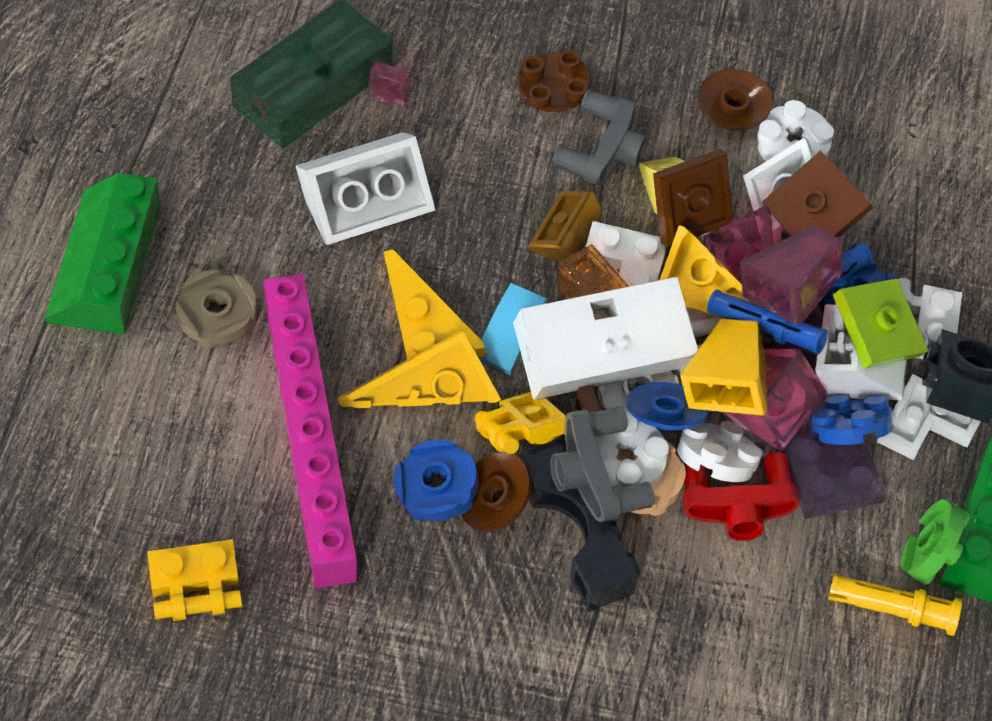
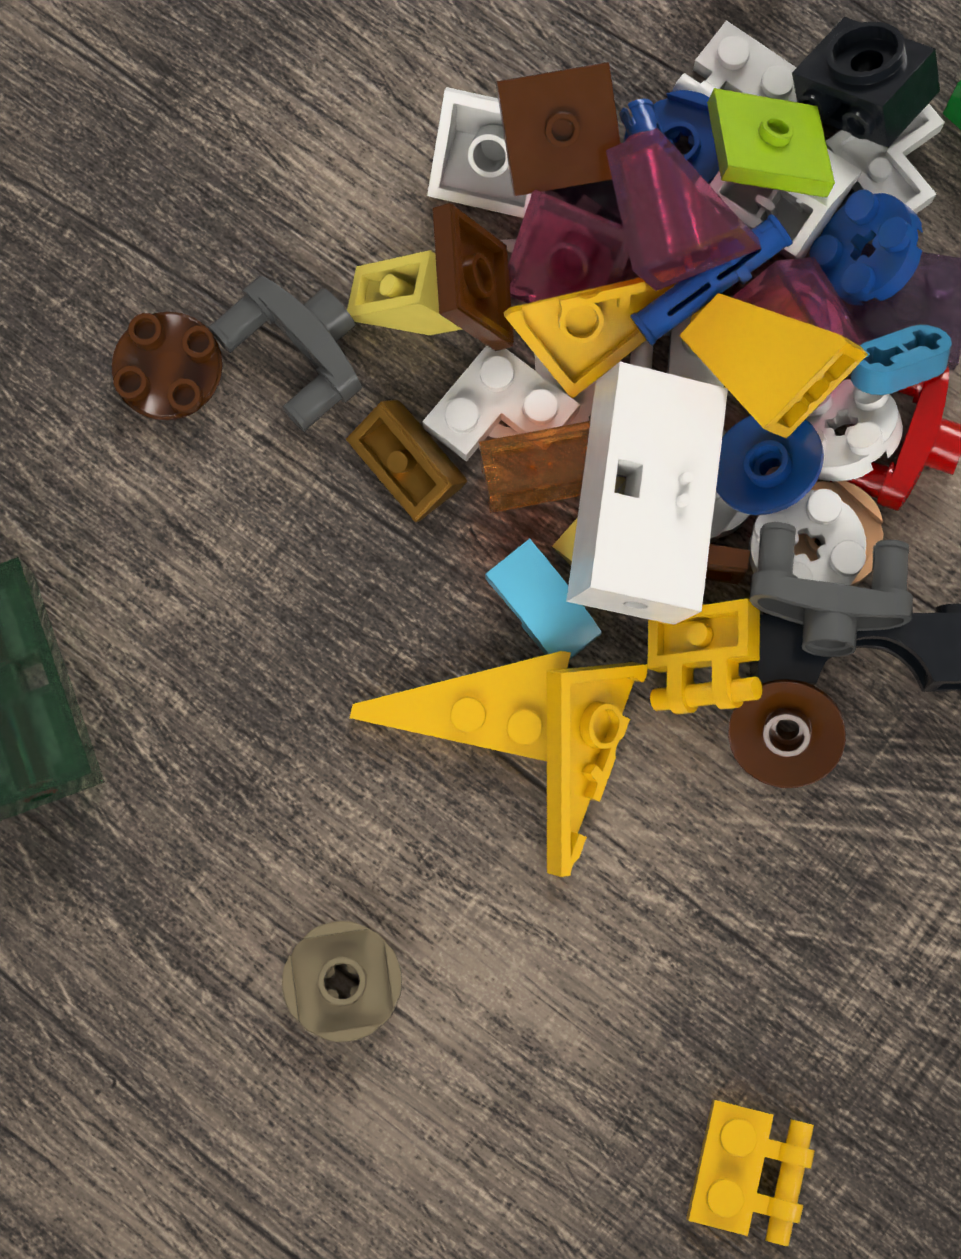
camera: 60 degrees left, 20 degrees up
(106, 254) = (186, 1106): green slope -> none
(310, 432) = (595, 933): dark pink brick -> none
(366, 187) = (233, 697): white slope -> none
(389, 84) = (74, 591): clear pink plate -> none
(440, 502) = (752, 830): blue plate -> none
(739, 89) = (309, 124): reddish brown dish -> none
(782, 459) = (902, 359): none -> dark azure beam
(797, 120) = (391, 72): white plate -> none

